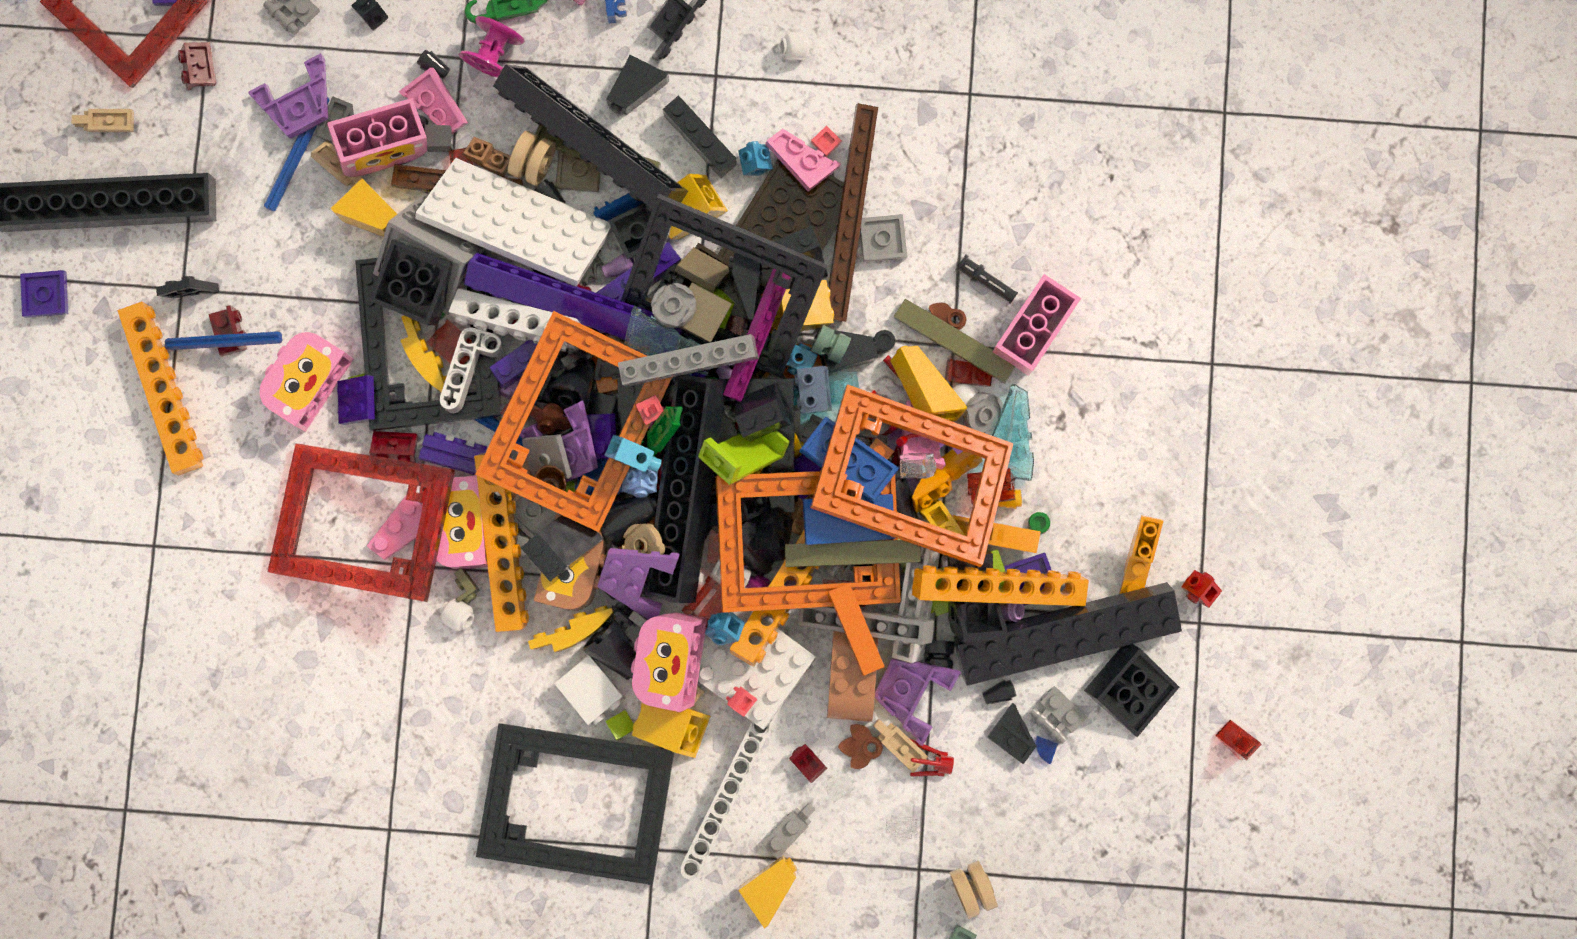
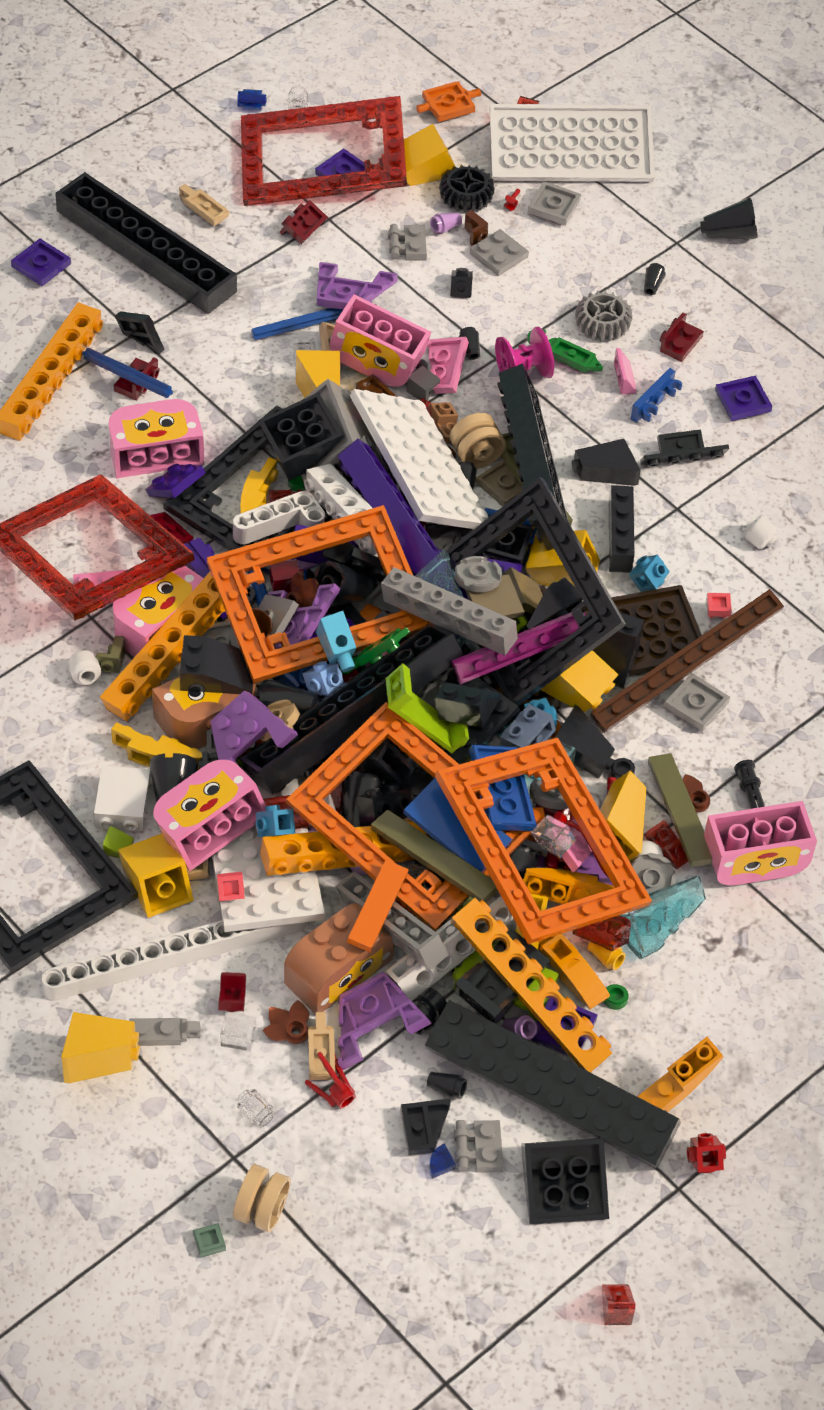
camera: 40 degrees right, 30 degrees down
(649, 409) = (382, 627): coral tile -> none
(803, 162) = (684, 598): bright pink wing -> none
(831, 344) = (575, 716): sand green wheel -> none

